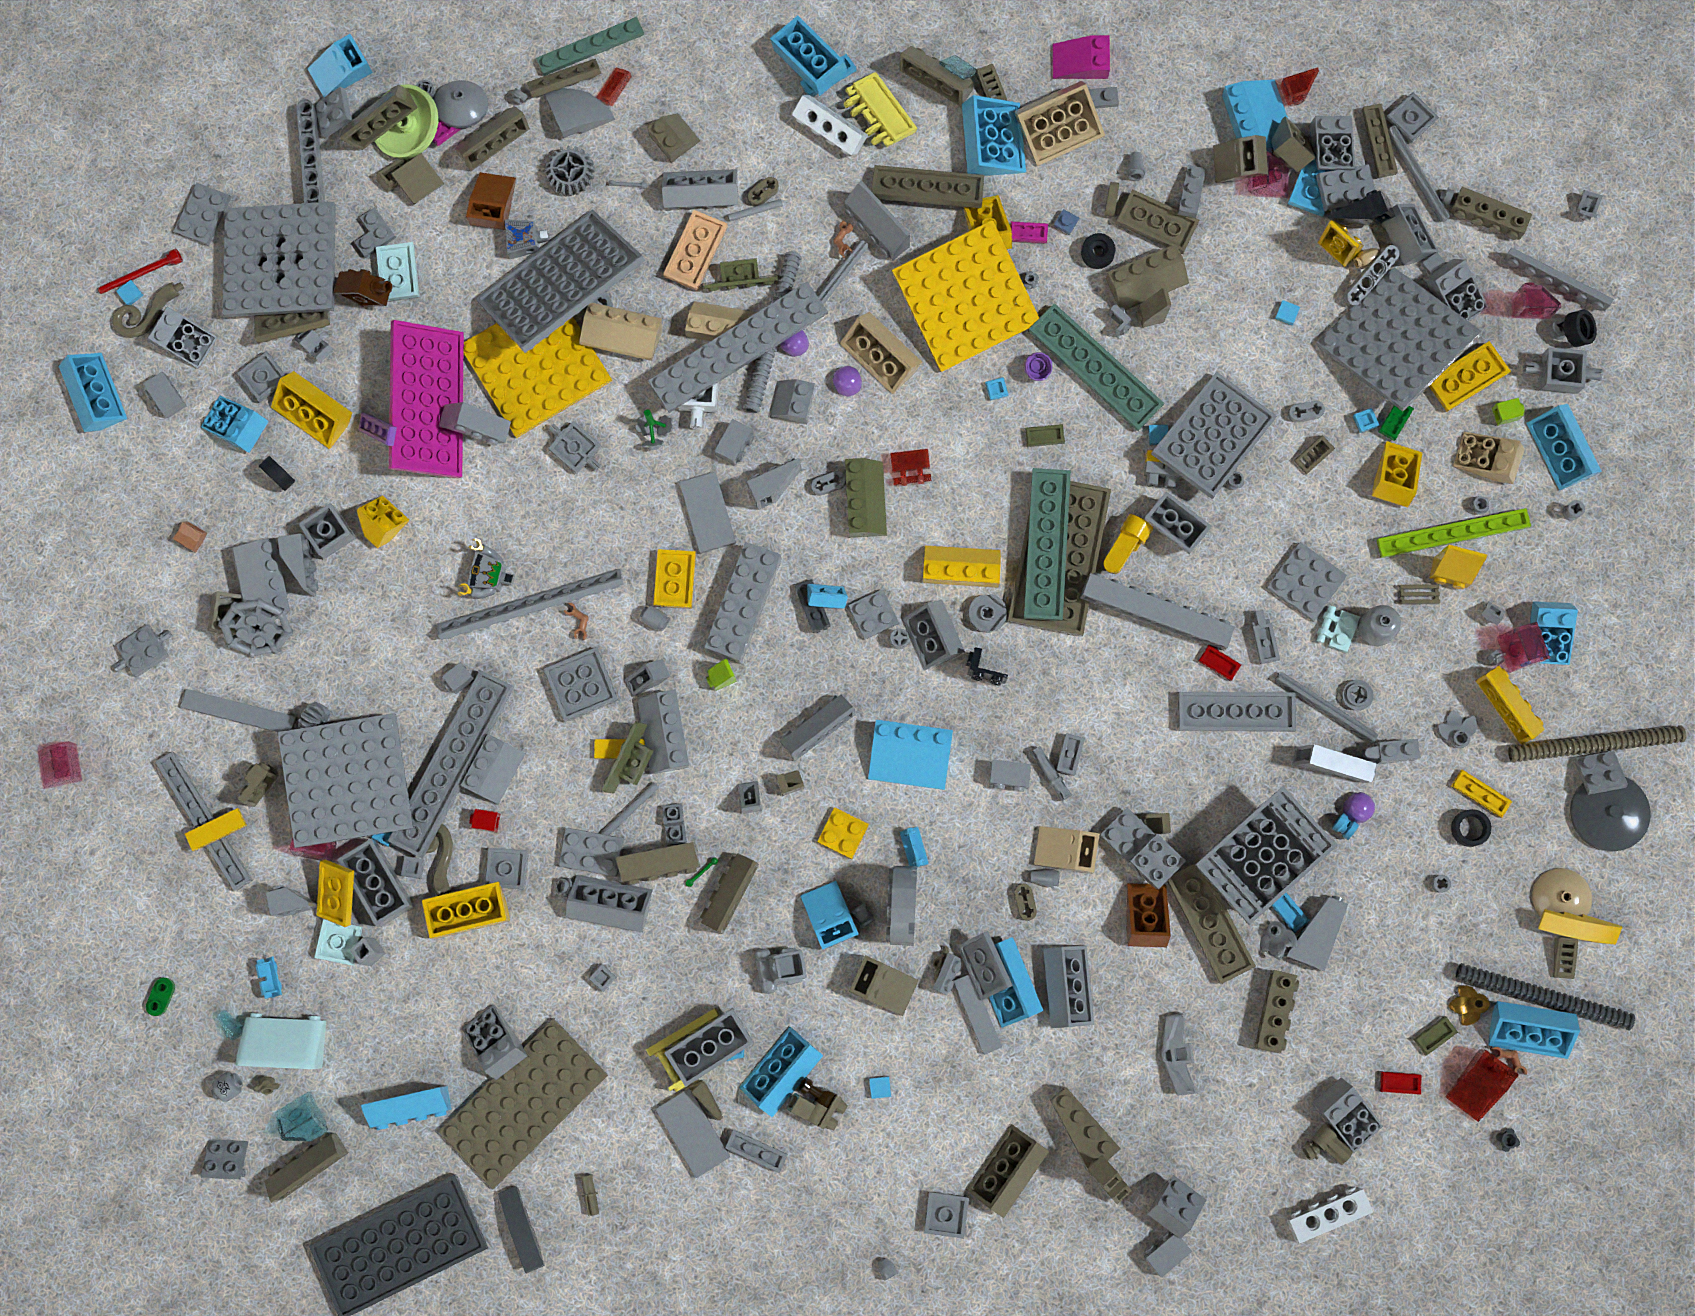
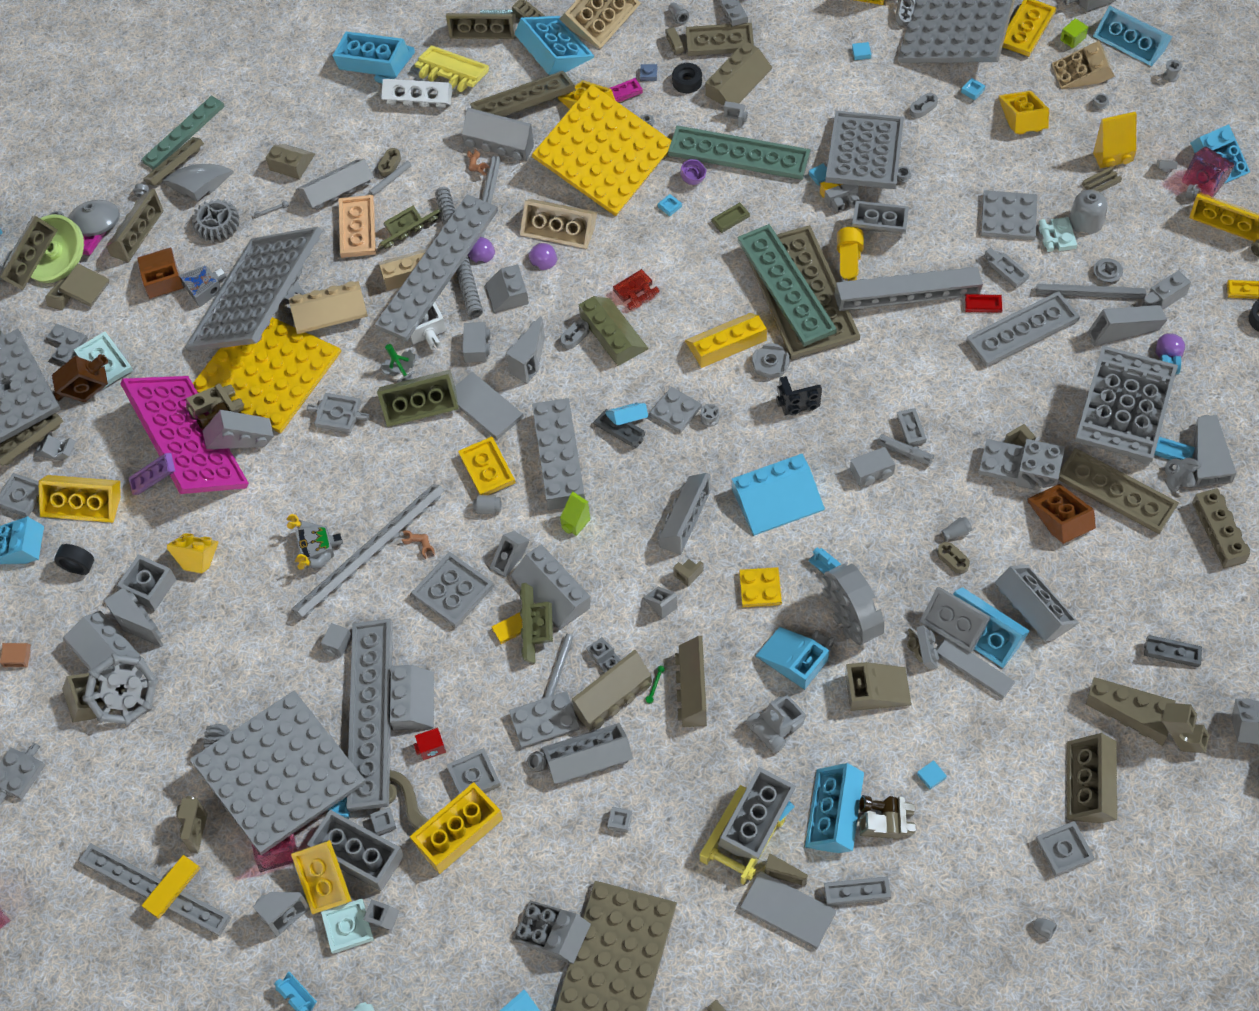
camera: 30 degrees left, 20 degrees down
(238, 711) = (136, 778): light grey tile -> none
(472, 383) = (212, 399): none -> dark tan hips
(614, 86) = (220, 149): clear red slope -> none
(651, 474) = (418, 398): none -> olive slope
(933, 634) = (736, 397): light grey slope -> none
(1067, 849) = (961, 496): tan slope -> none
(1154, 309) = (759, 87): dark tan slope -> none
(1154, 1098) = (1173, 651): none -> dark grey hinge
(1176, 1054) = (1167, 605): light grey plate -> none
(1325, 443) = (953, 117): dark tan slope -> none
(1395, 422) = (995, 78): green plate -> none
(1453, 533) = (1089, 132): lime plate -> none
(1457, 726) = (1200, 255): light grey plate -> none

